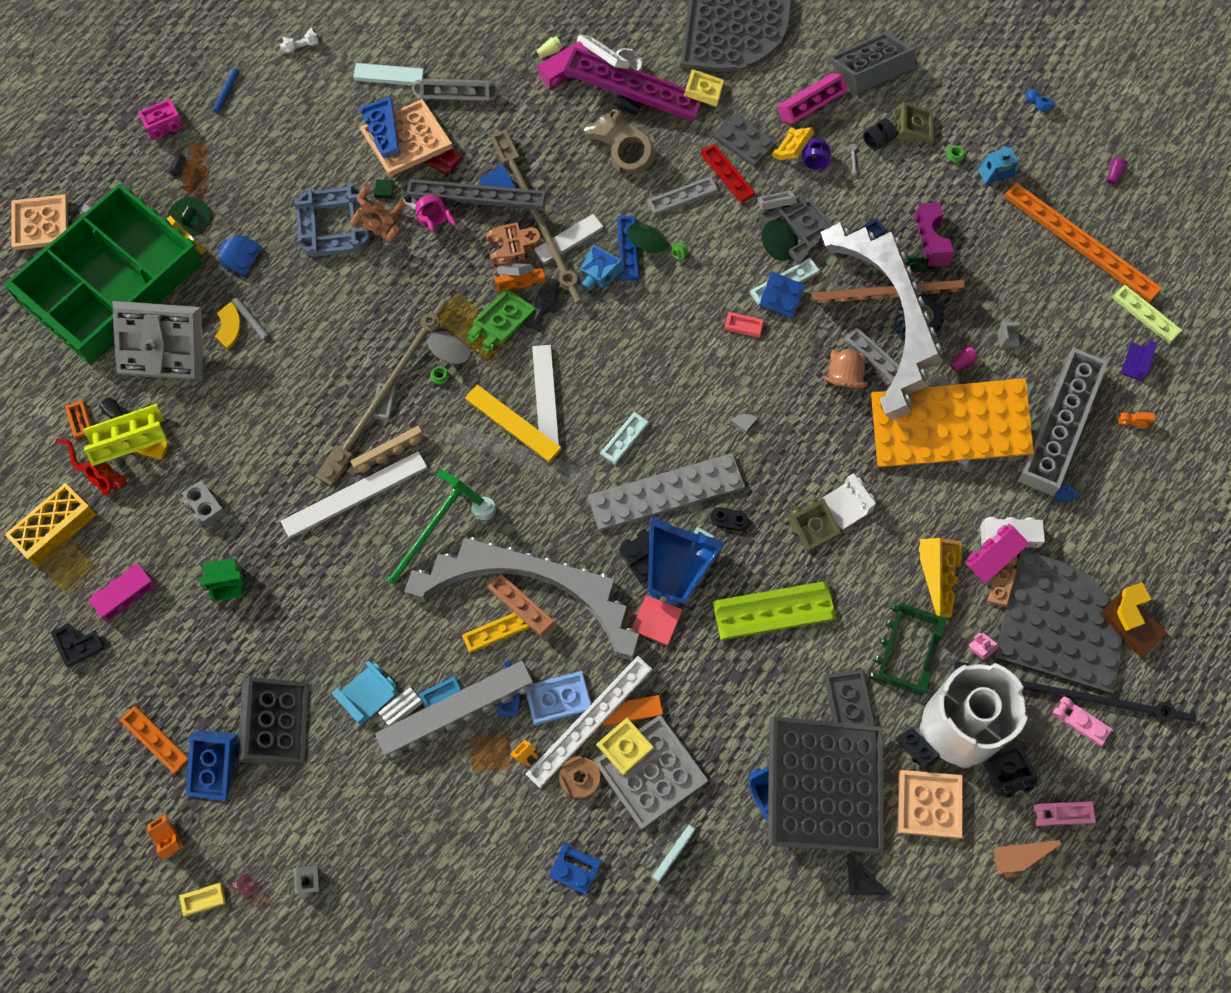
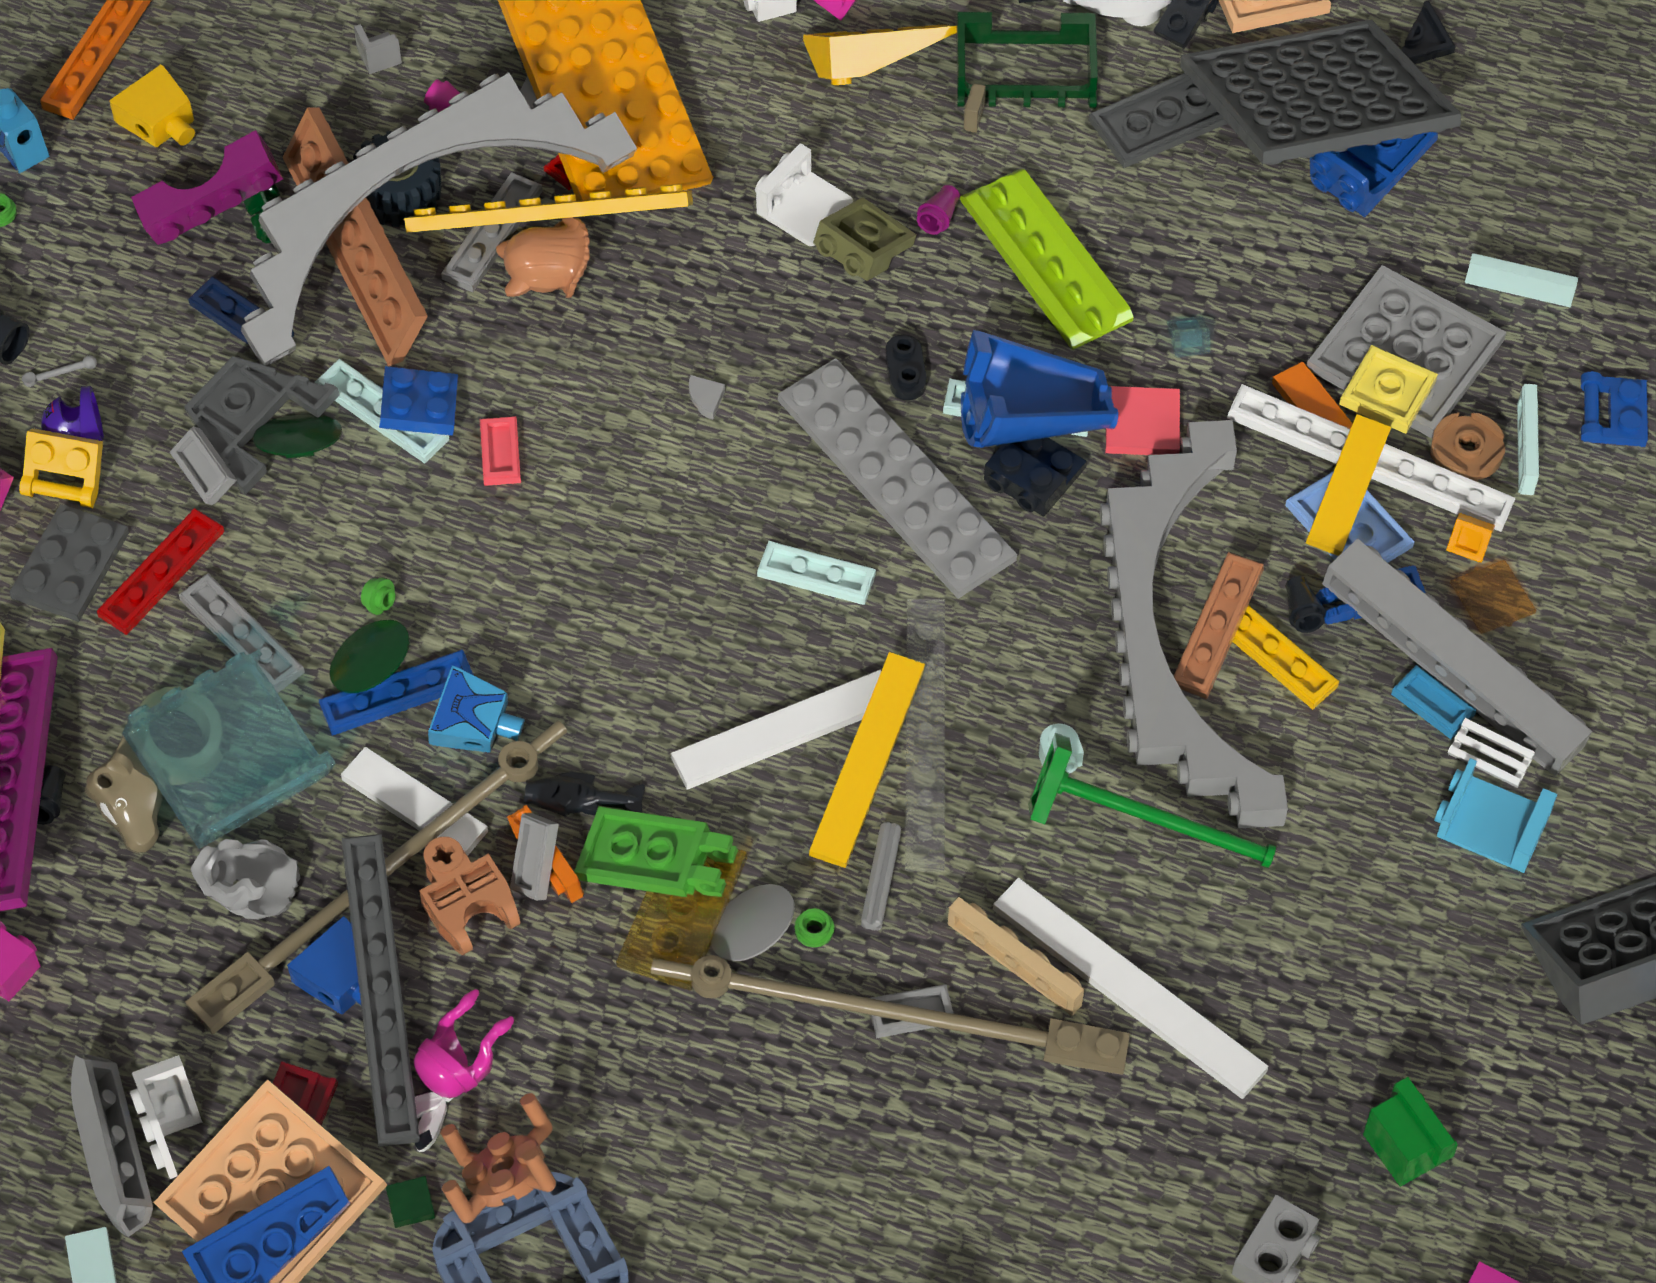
camera: 110 degrees left, 10 degrees down
(451, 100) = (169, 1106): none -> white bracket
(453, 411) = (881, 876): none -> light grey axle
(517, 652) = (1304, 607): none -> black cone
(547, 156) = (264, 876): none -> light grey hair
(570, 809) = (1527, 439): none -> light aqua tile
(573, 699) = (1348, 485): none -> yellow tile
(614, 166) = (224, 749): none -> clear light blue panel
(701, 664) = (1189, 336): none -> clear light blue slope
(821, 567) = (937, 211): none -> magenta cone
(870, 377) = (564, 207): none -> yellow plate
(883, 609) = (974, 107): none -> dark tan tile
(997, 230) = (155, 109): none -> yellow torso

